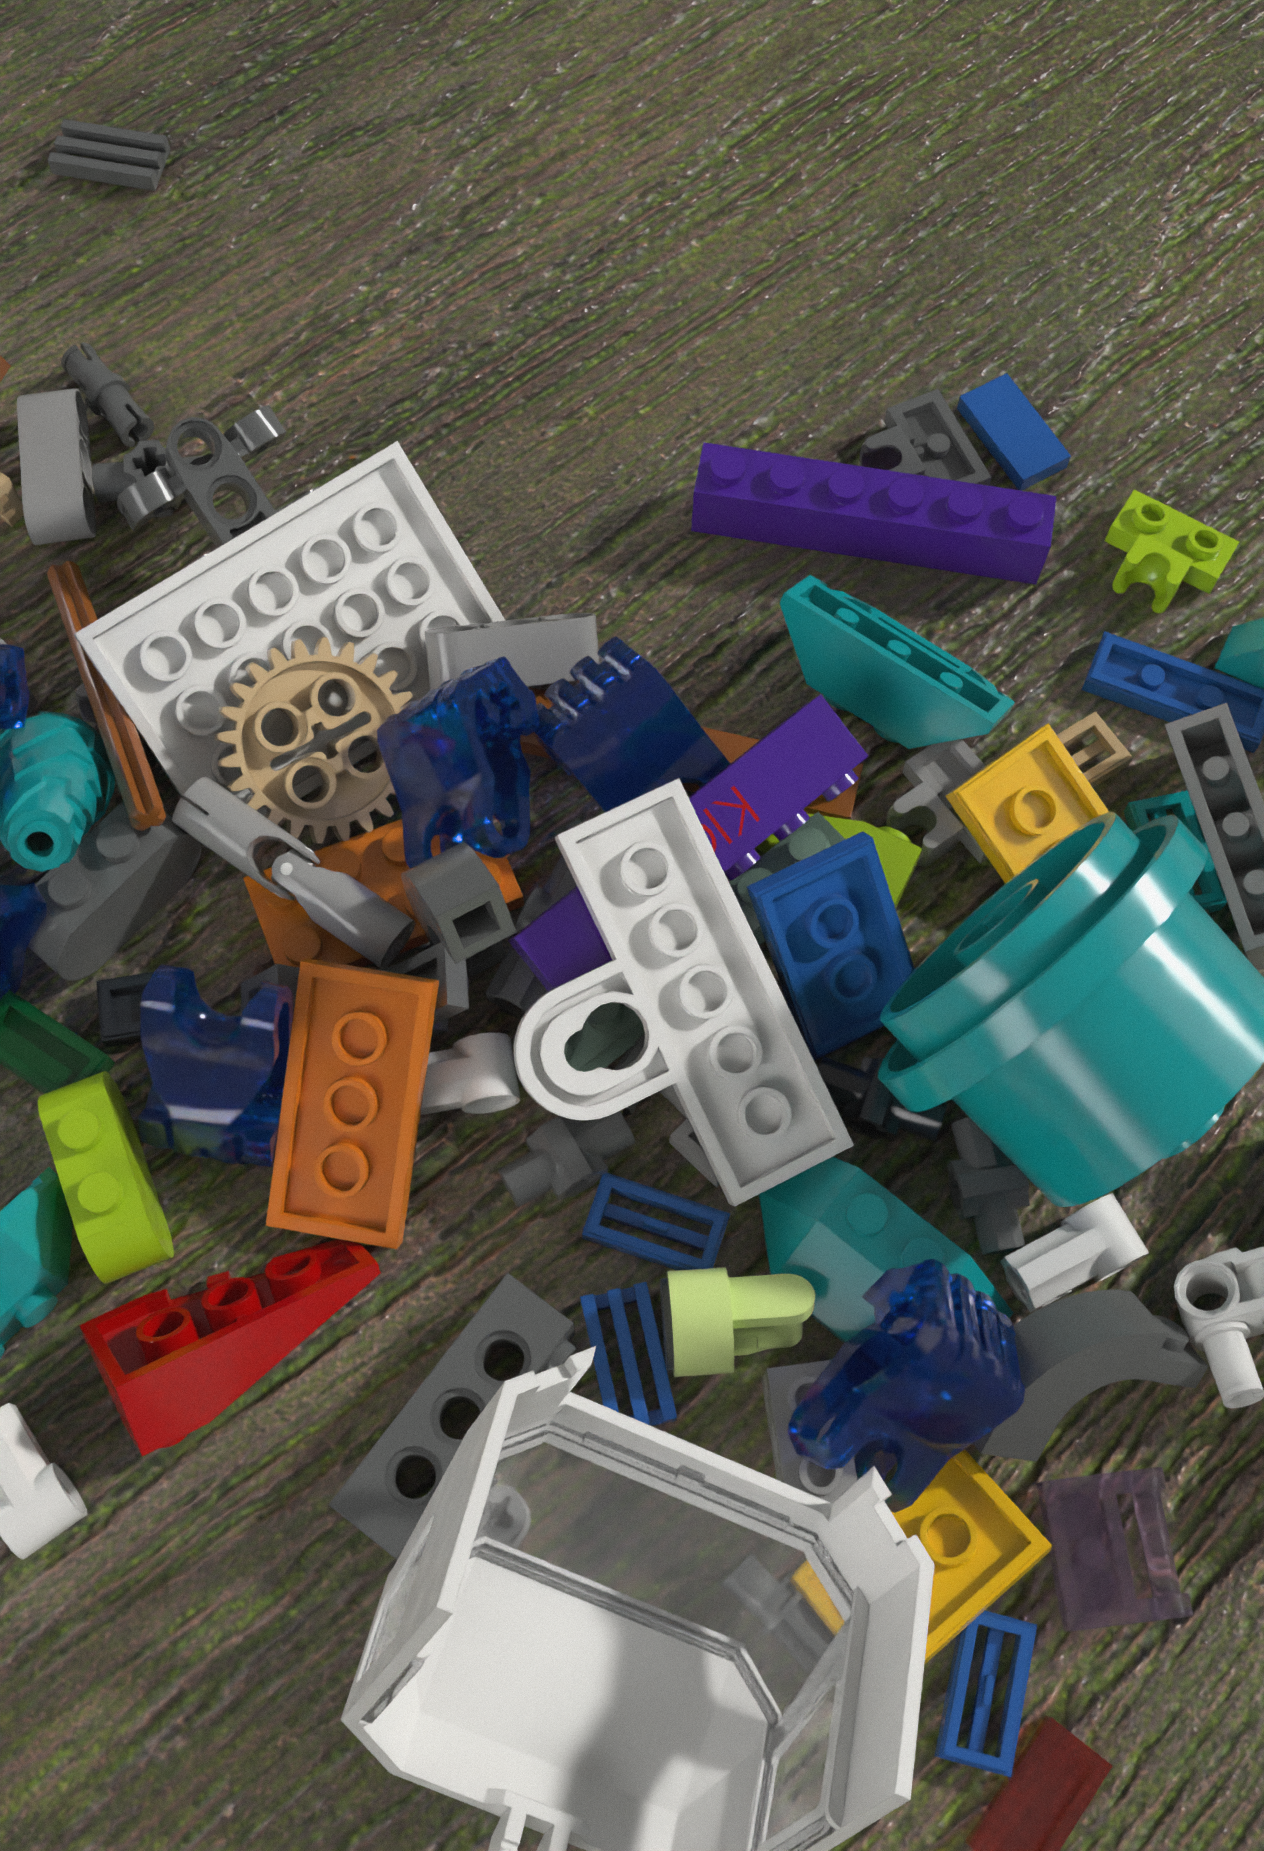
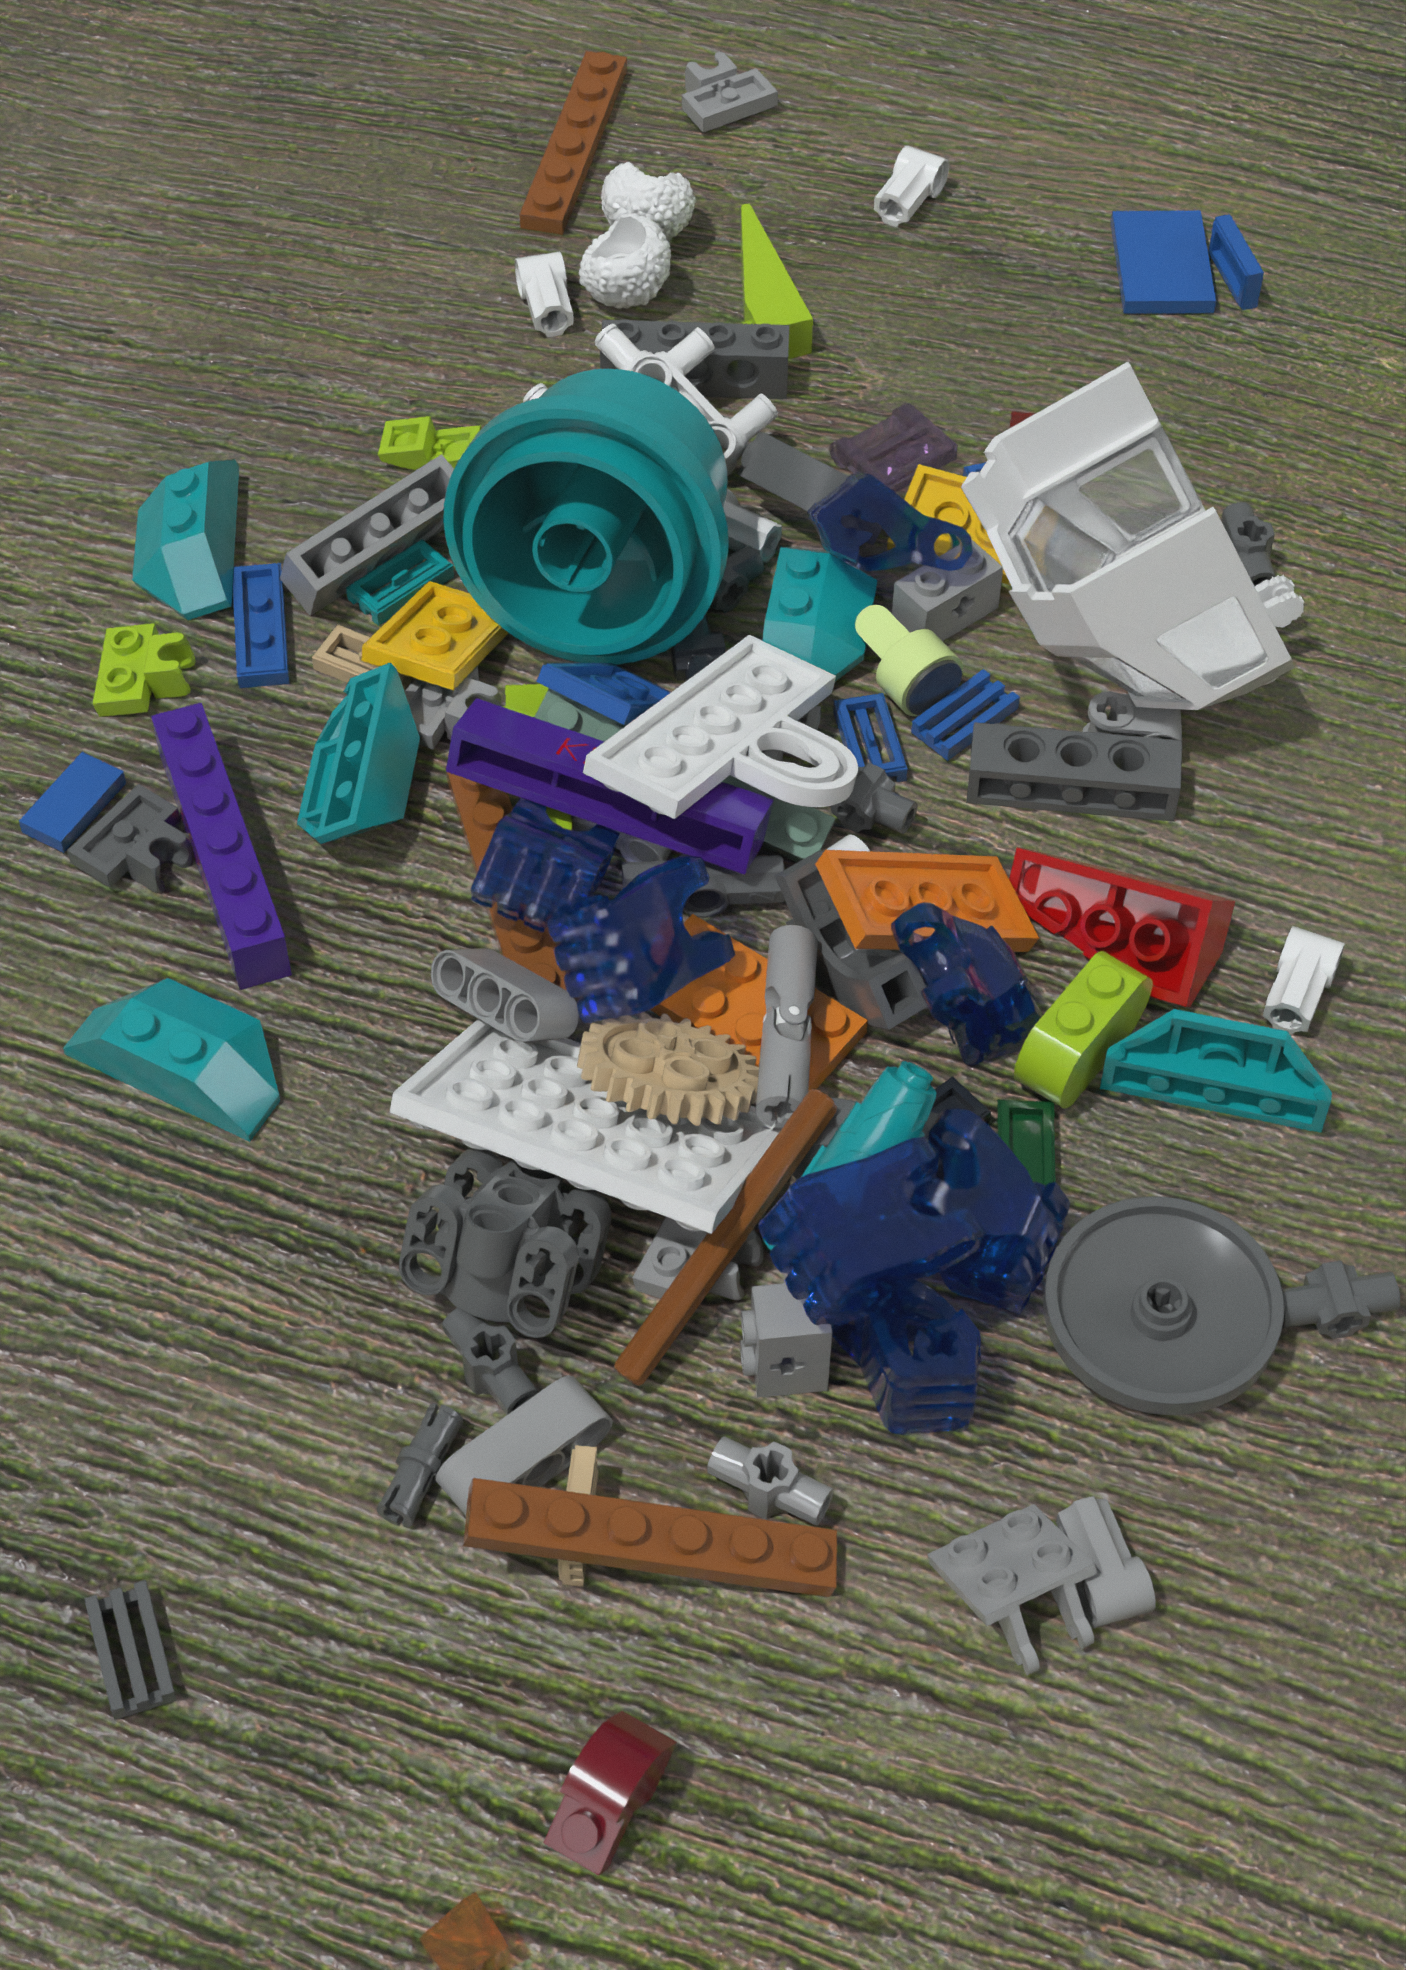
camera: 120 degrees left, 15 degrees down
(460, 907) = (752, 871): dark grey arch -> none
(638, 390) = (184, 1053): none -> teal wedge

